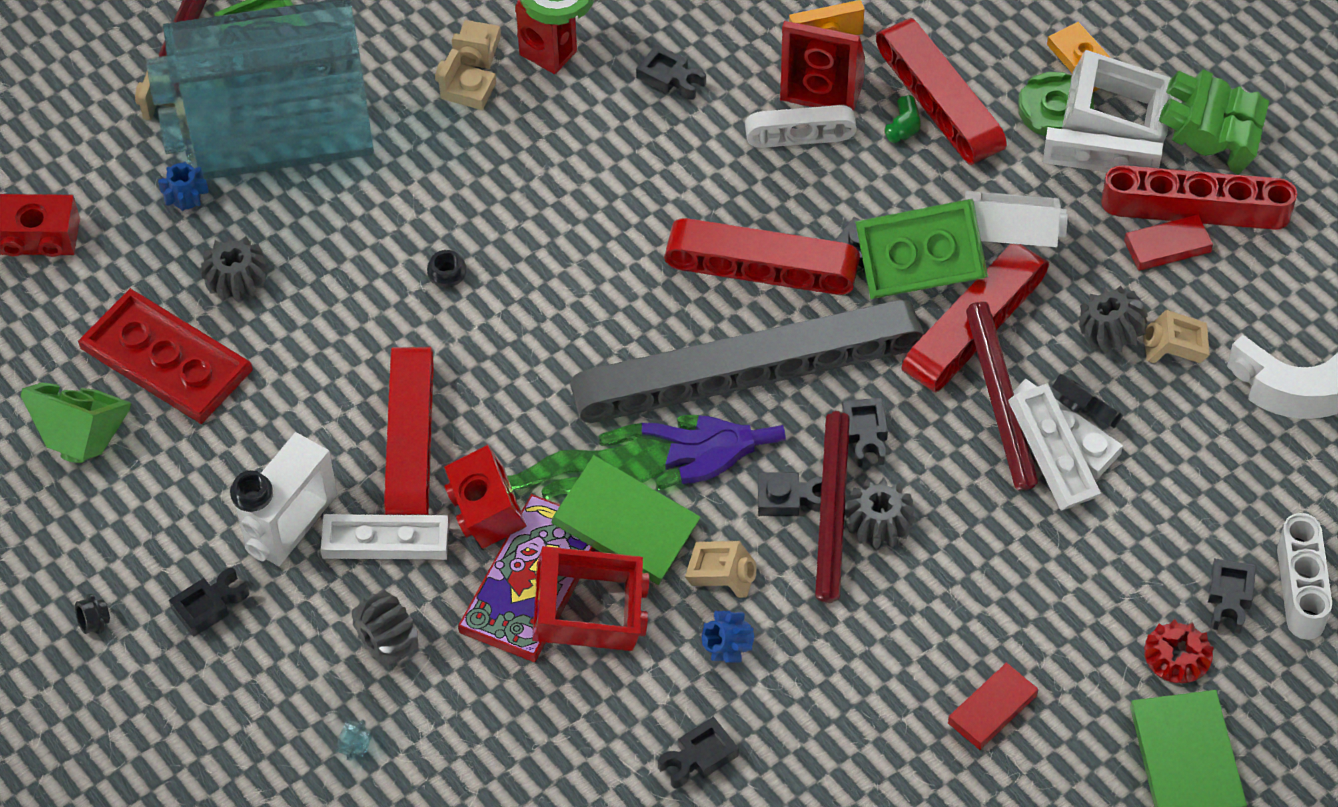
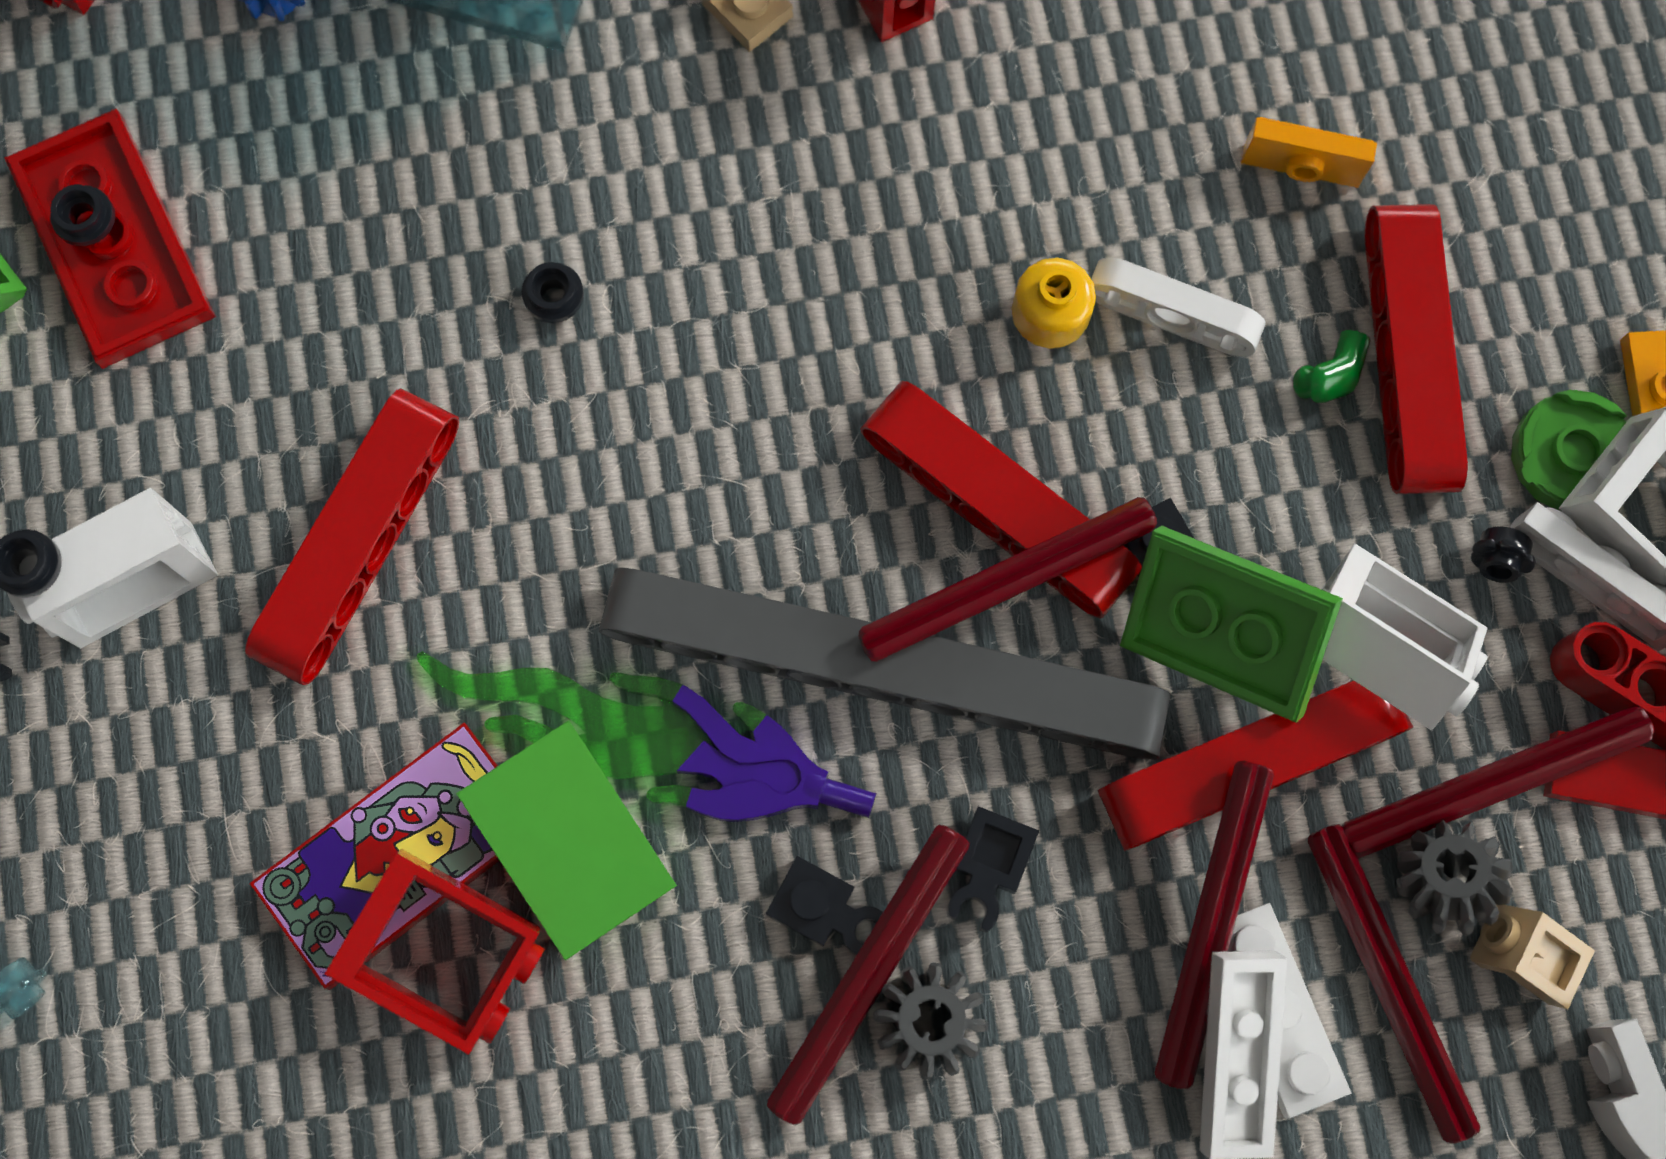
camera: 25 degrees right, 20 degrees up
(149, 334) = (73, 202): none -> black plate
(234, 268) = (254, 129): dark grey gear -> none
(385, 536) = (231, 686): white plate -> none
(385, 628) = (135, 846): dark grey gear -> none
(484, 497) = (401, 733): red brick -> none
(668, 70) = (1036, 117): black plate -> none
(722, 565) = (659, 987): tan bracket -> none
(727, 636) = (599, 1113): blue gear -> none
(733, 150) = (1053, 303): none -> yellow head
(791, 281) = (1007, 579): none -> dark red axle
(820, 66) = (1249, 237): red slope -> none
(1046, 165) = (1503, 554): none -> black plate
(1077, 397) = (1332, 981): black plate -> none
(1107, 267) = (1499, 780): none -> dark red axle
(1113, 387) = (1394, 985): none -> dark red axle

